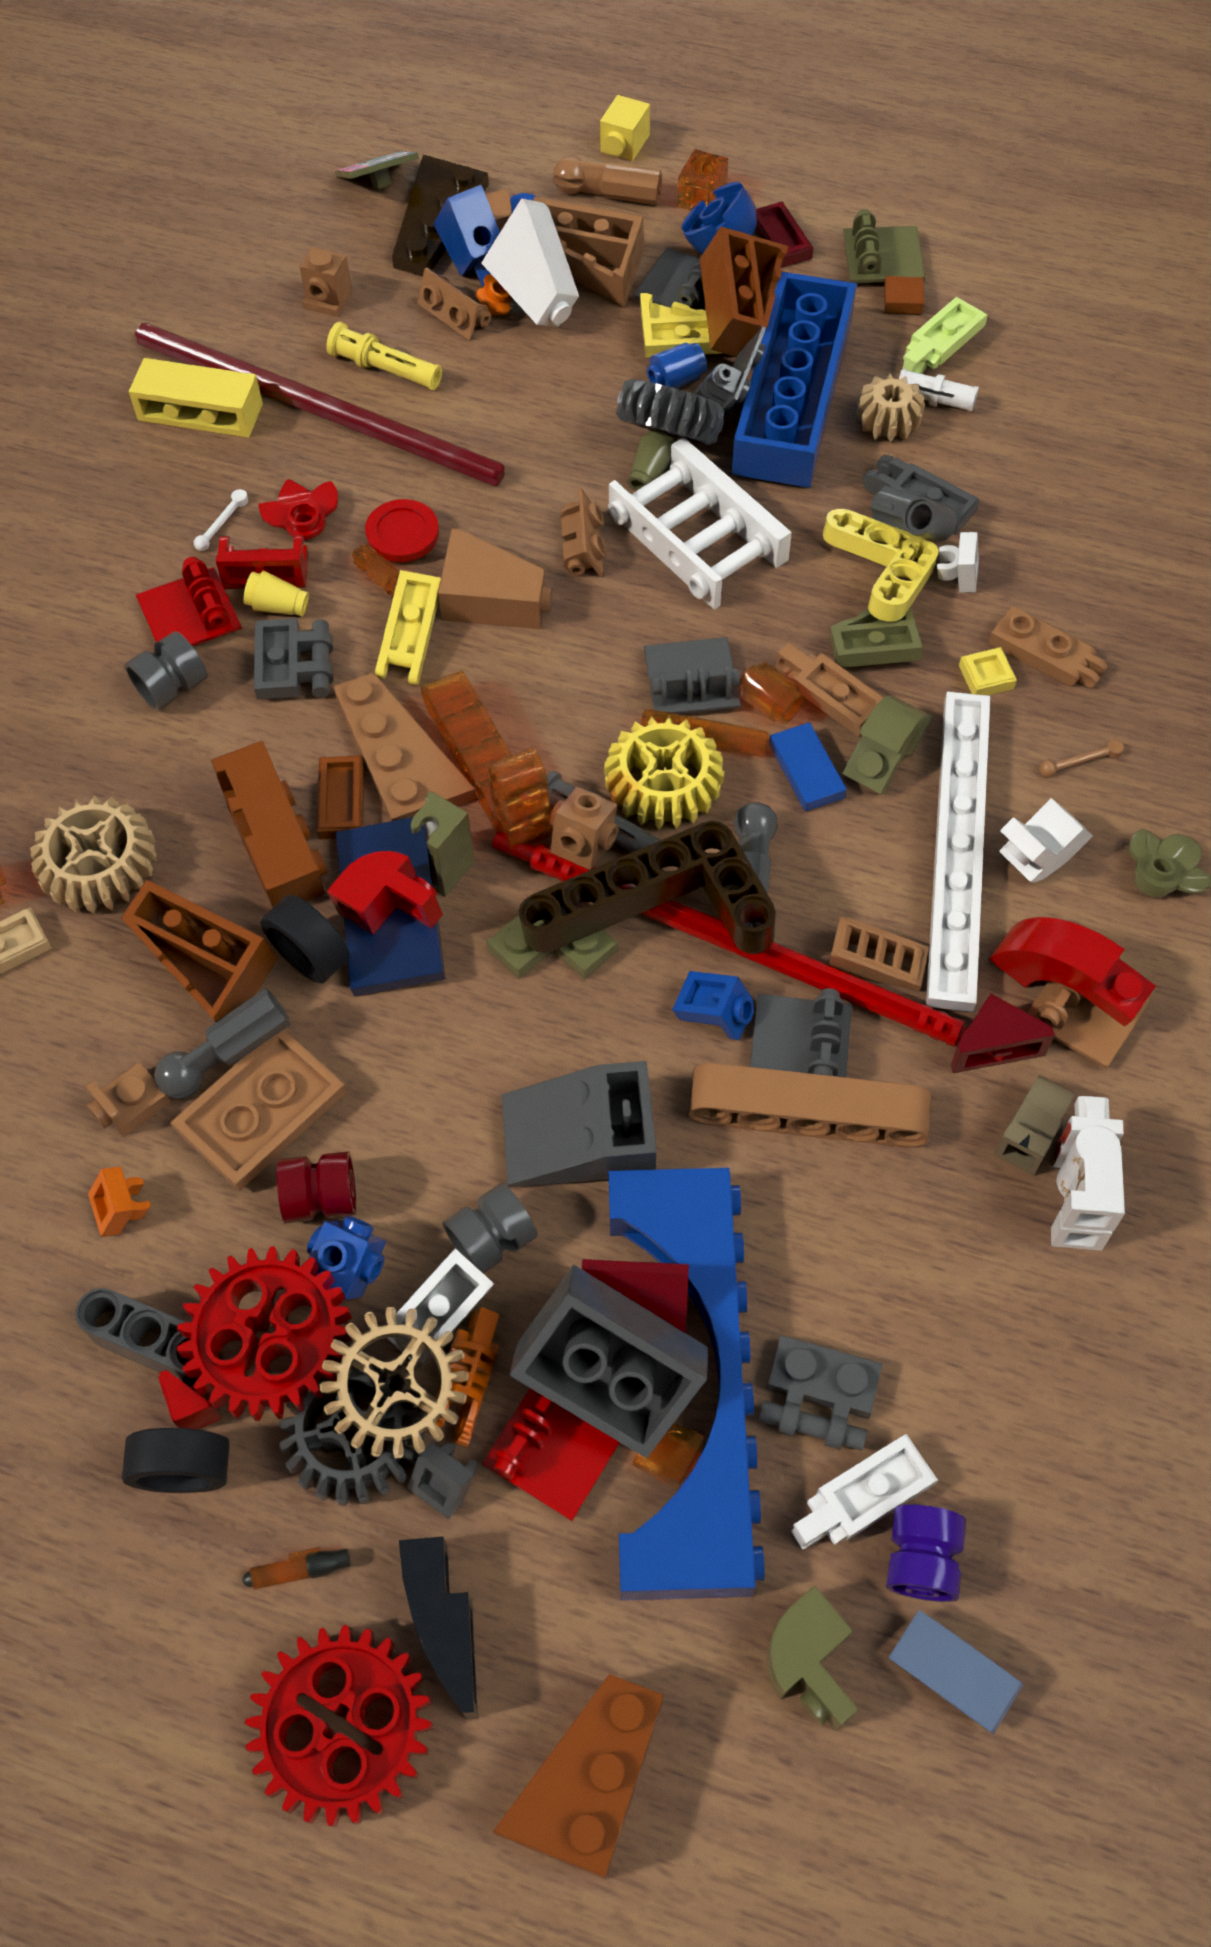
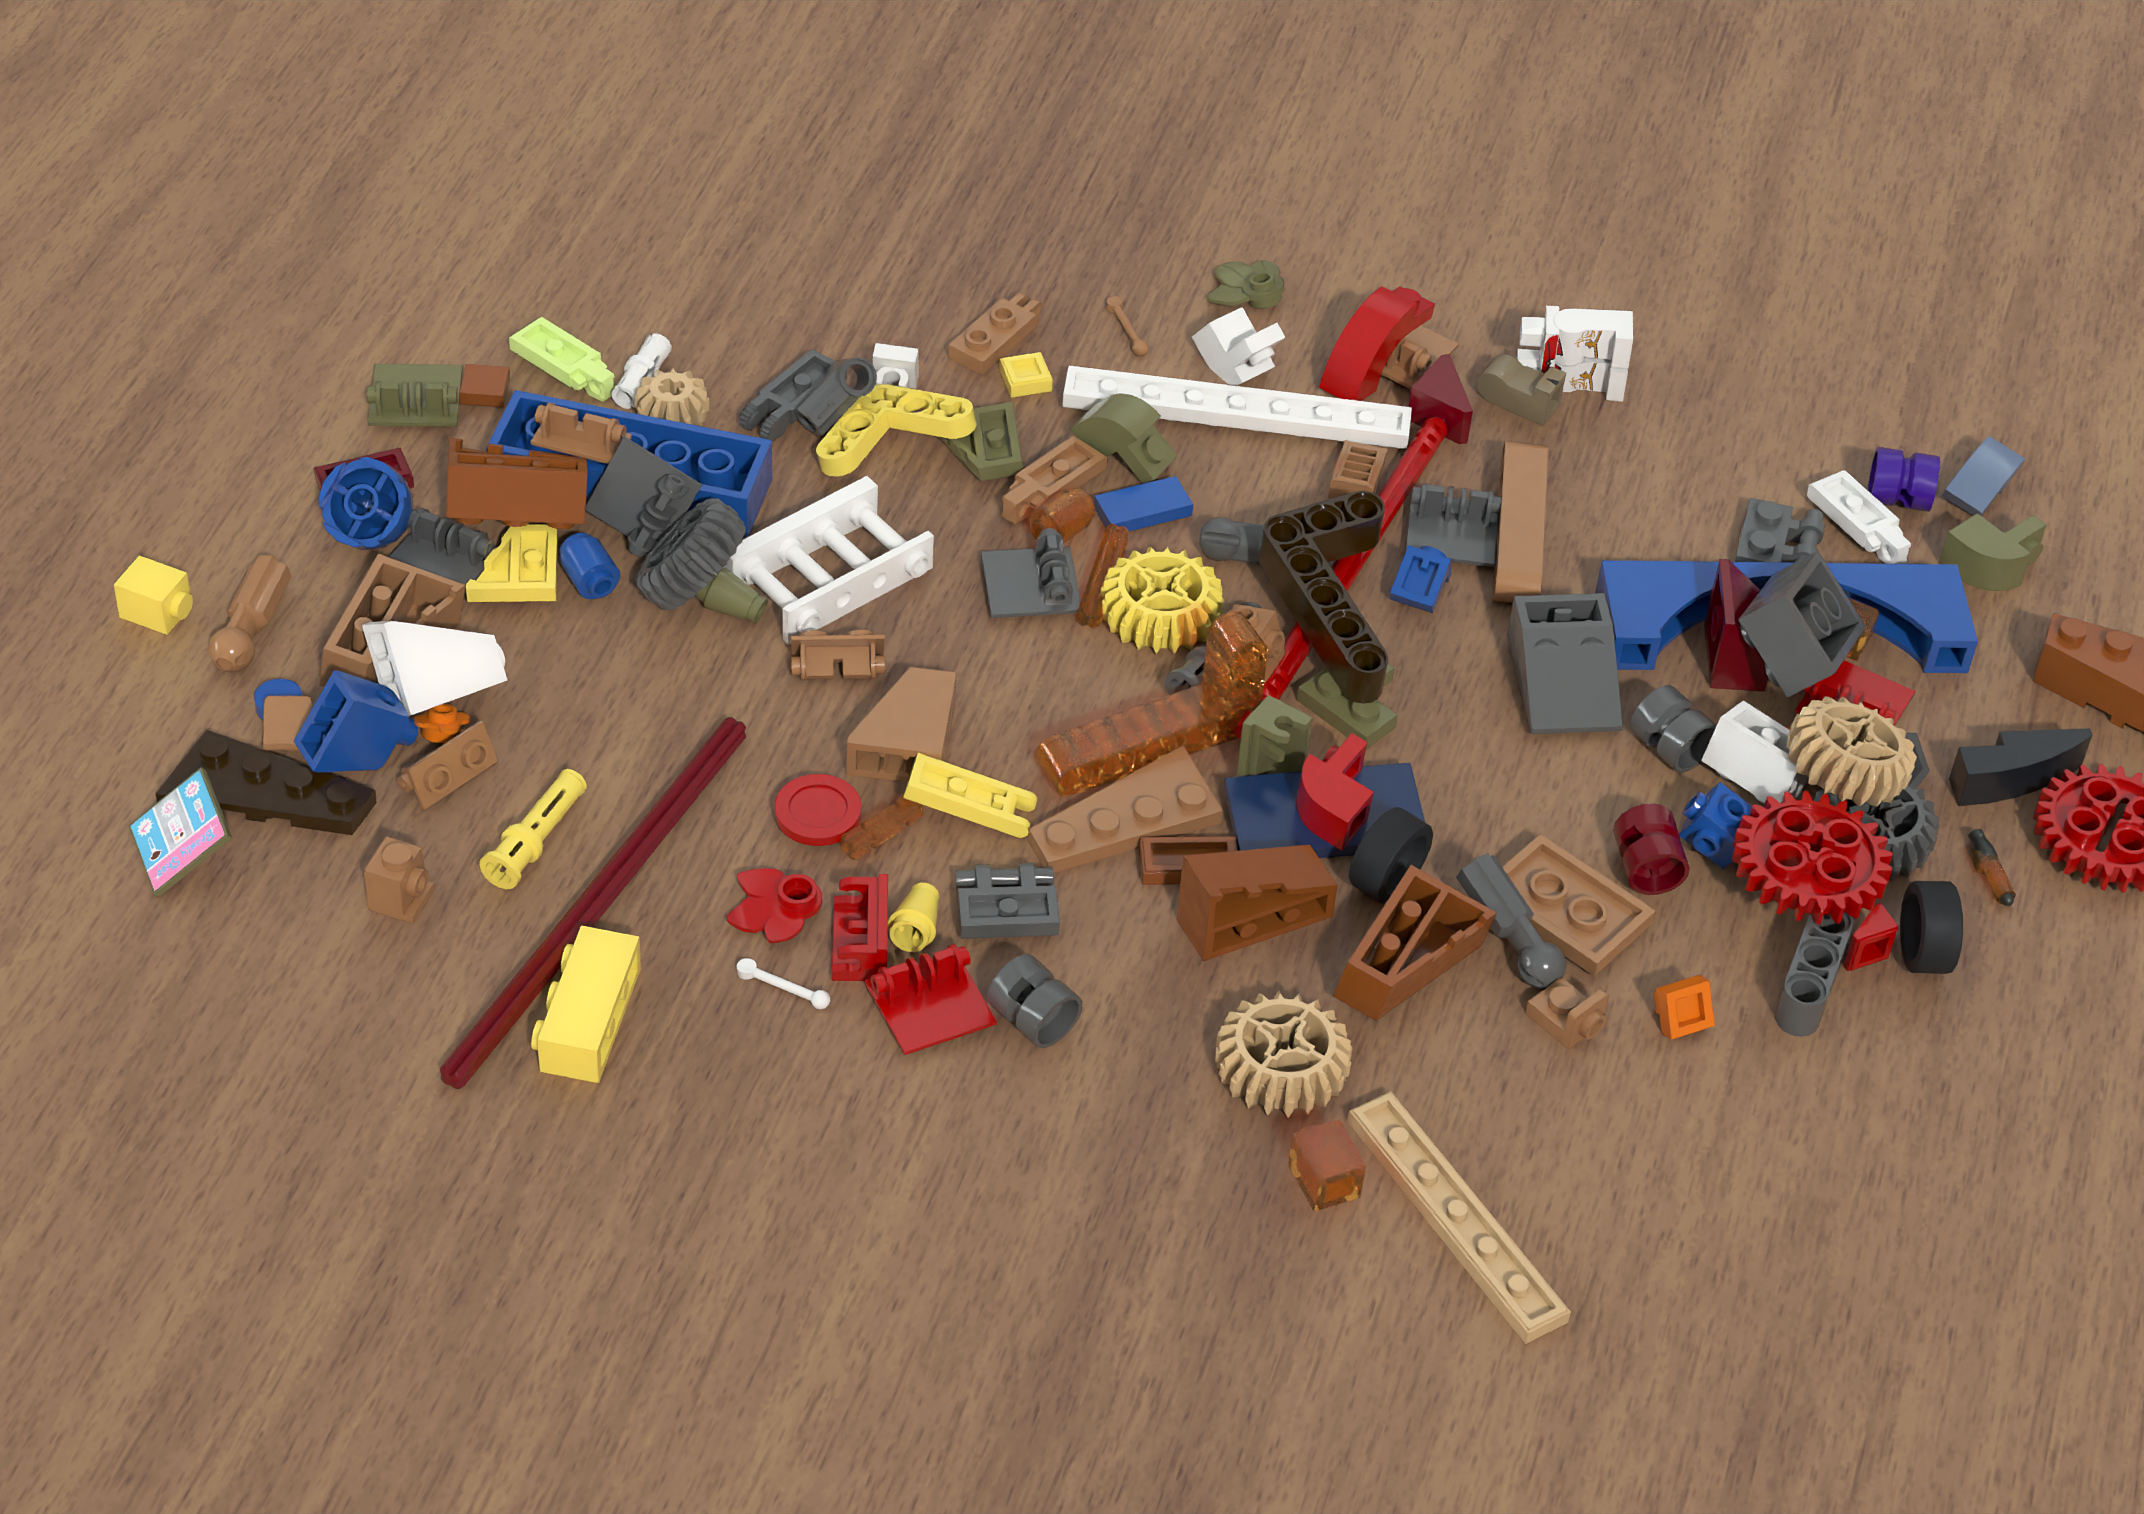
camera: 95 degrees left, 15 degrees down
(700, 177) = (272, 528): clear orange brick -> none
(790, 316) = (592, 439): none -> medium nougat hinge

